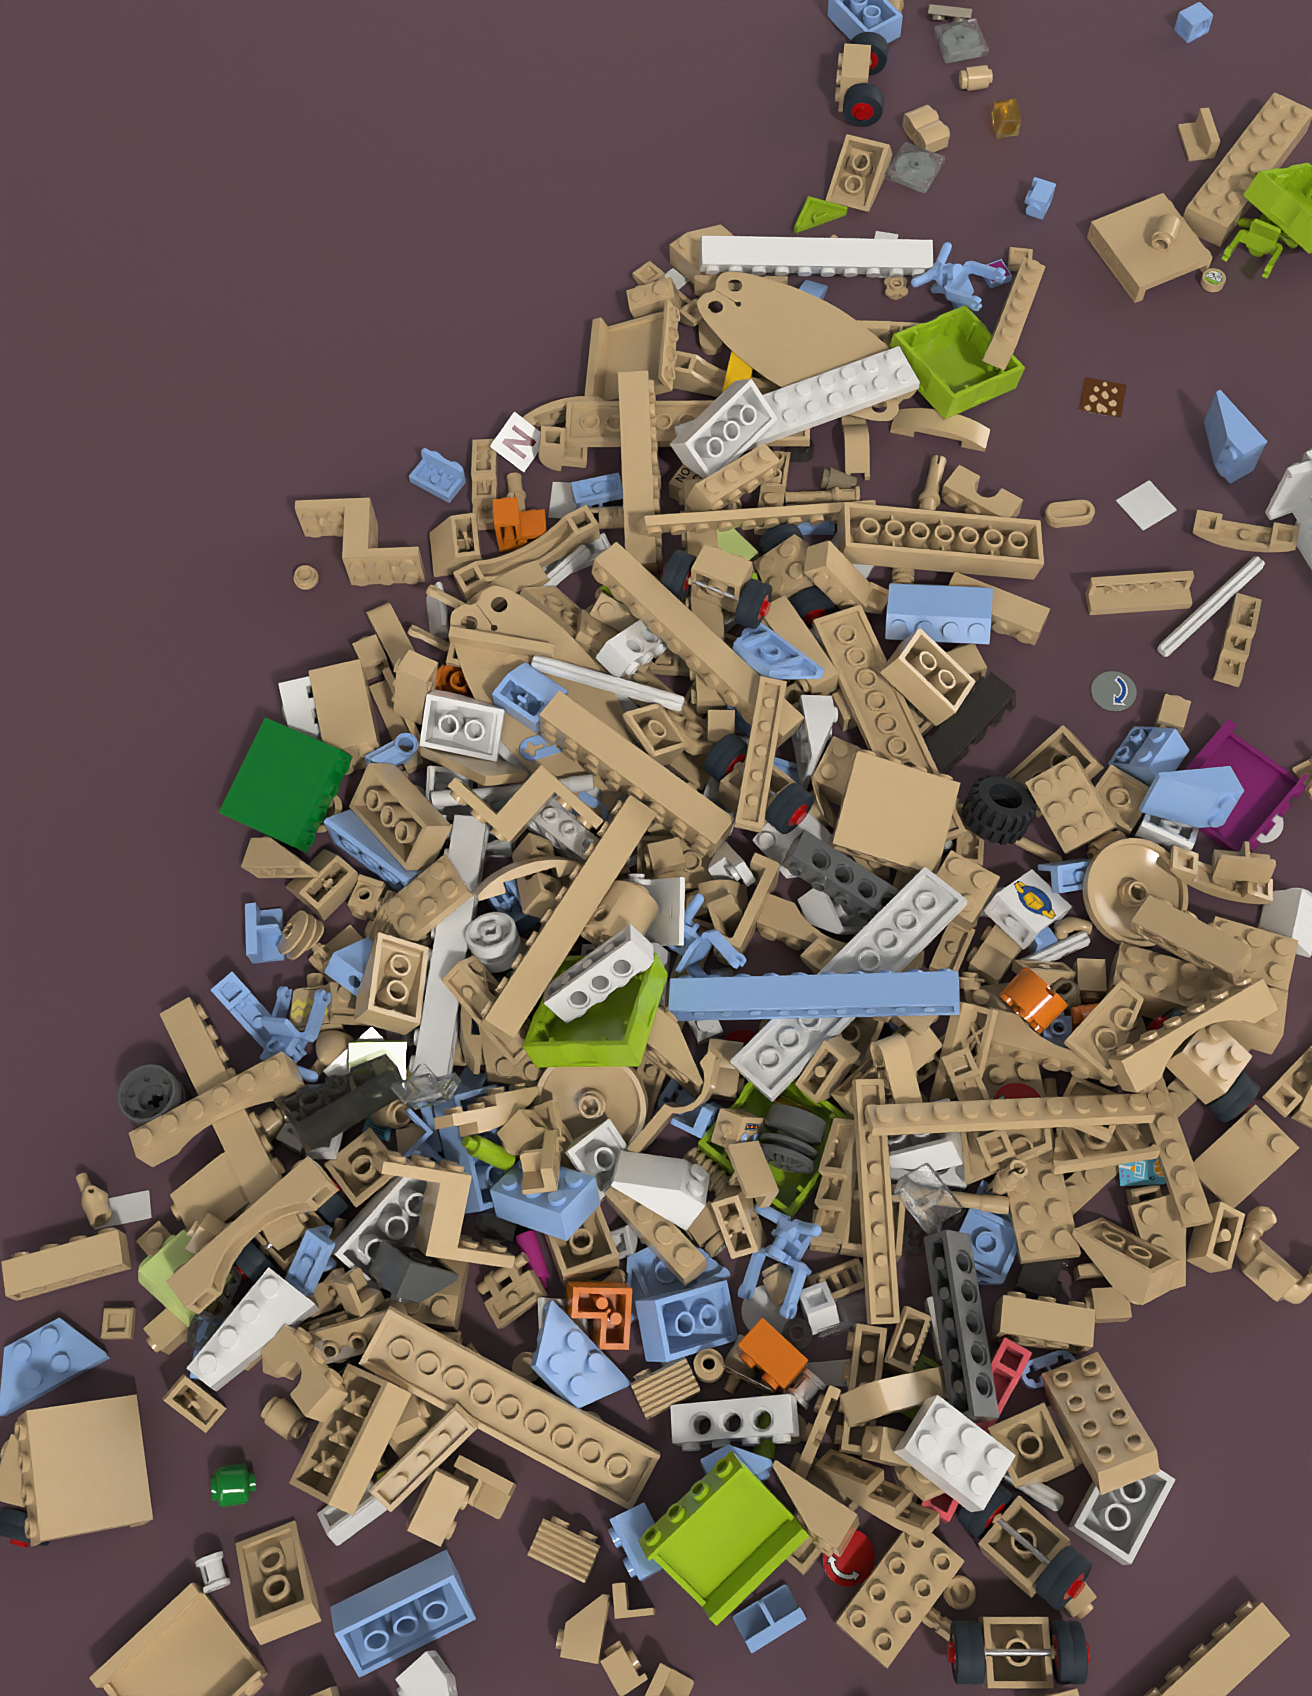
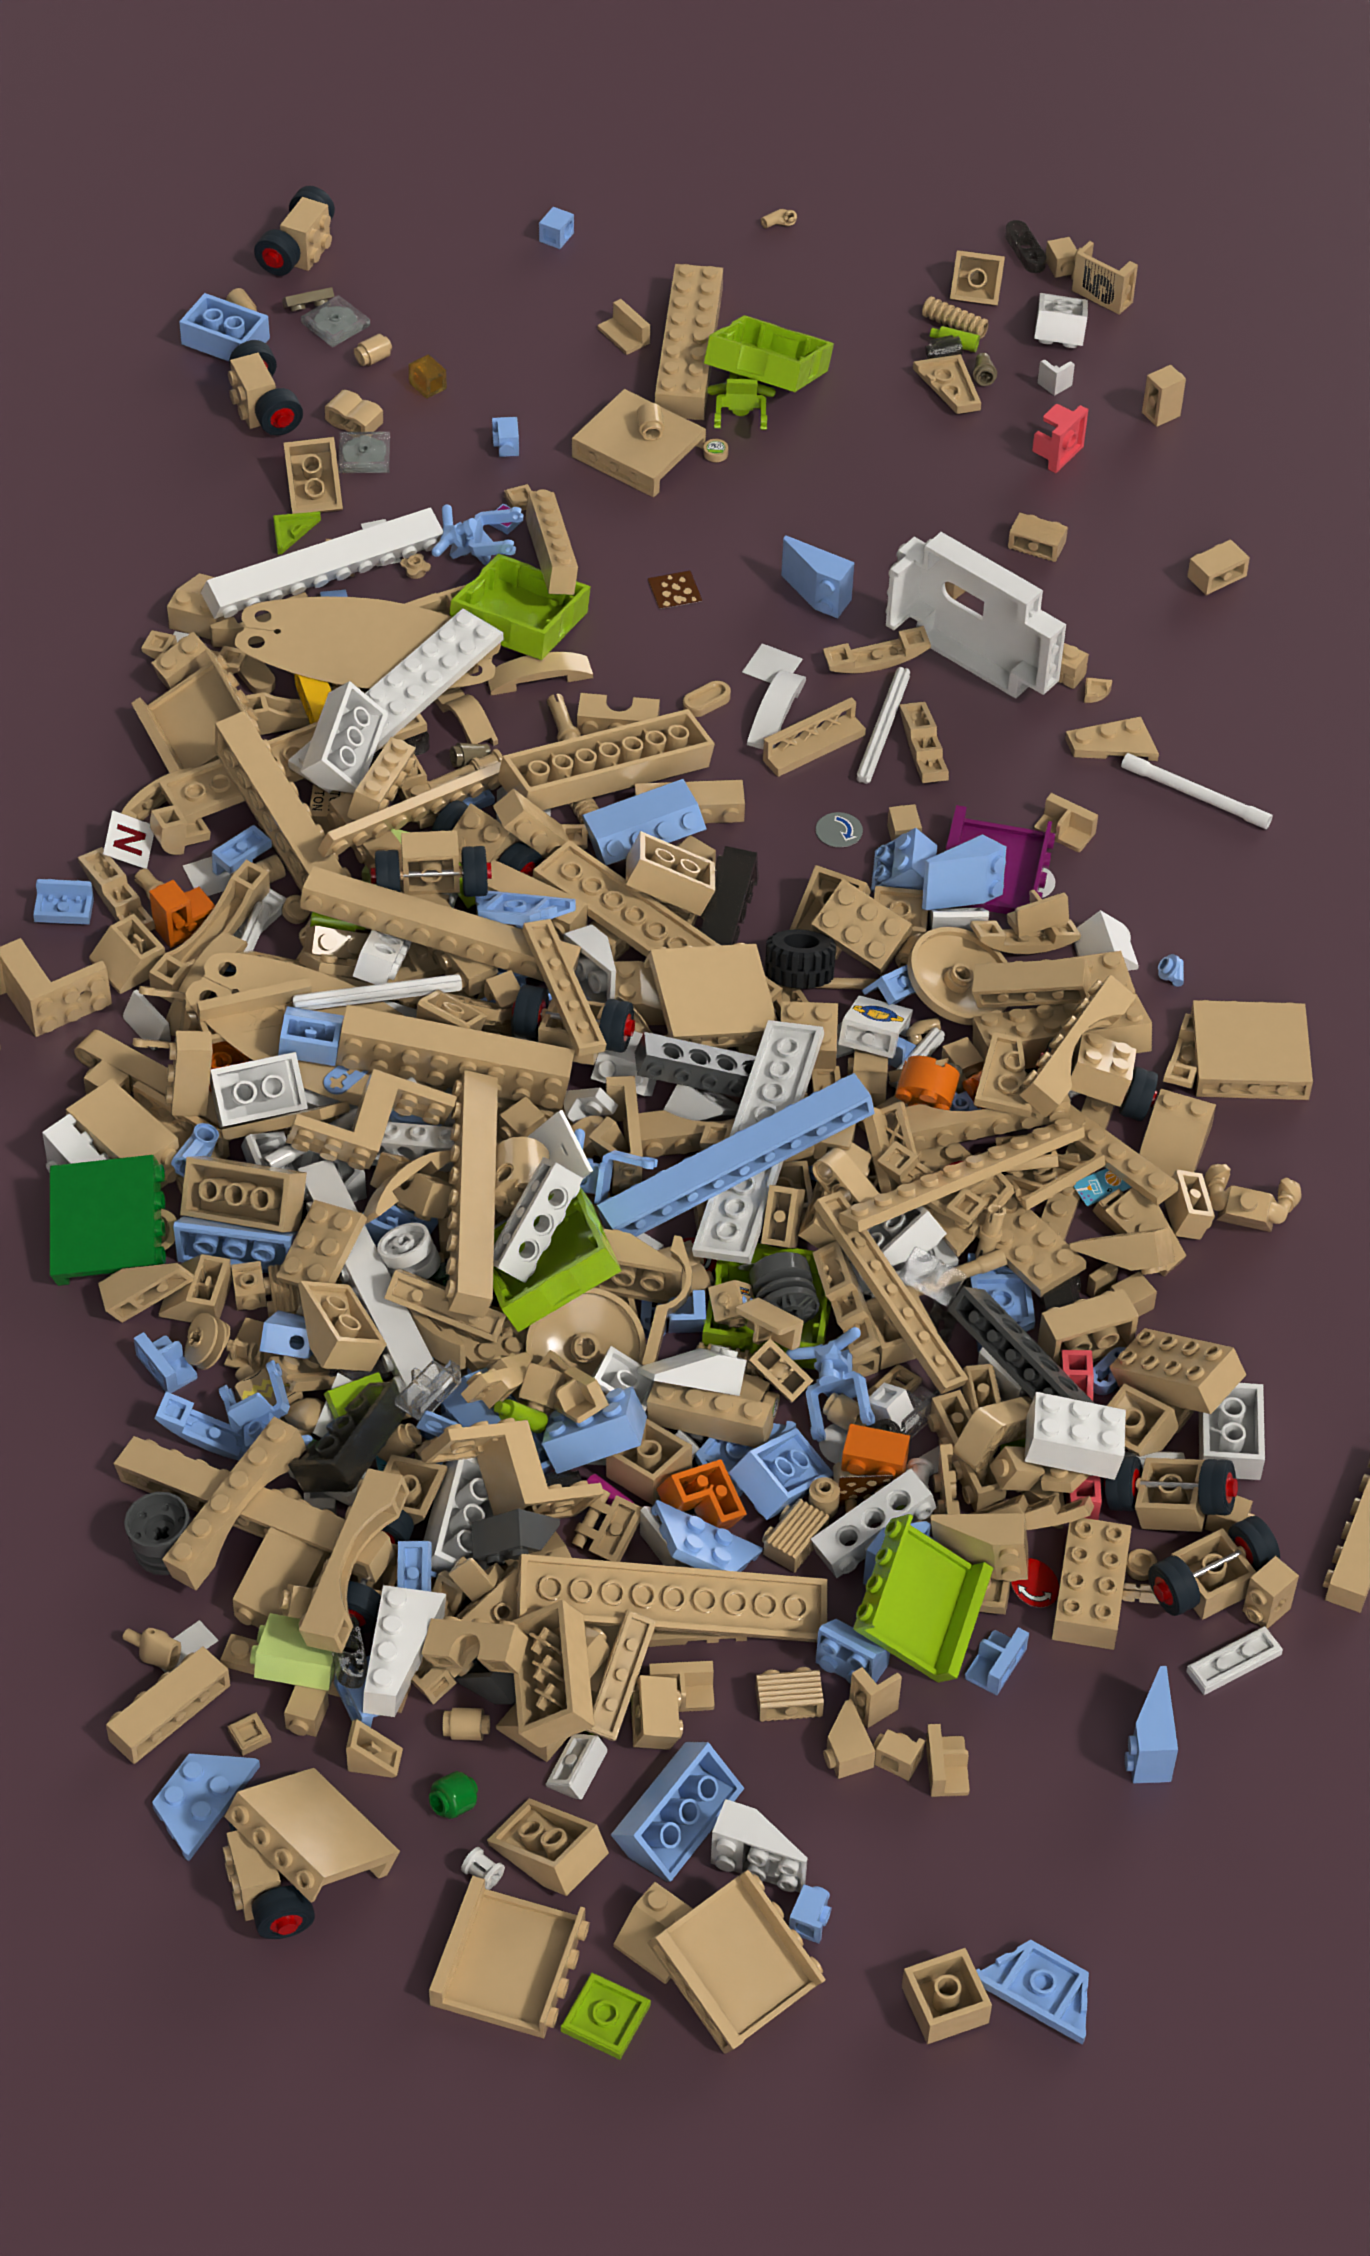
camera: 35 degrees left, 15 degrees down
(1124, 547) = (775, 707): none -> white slope

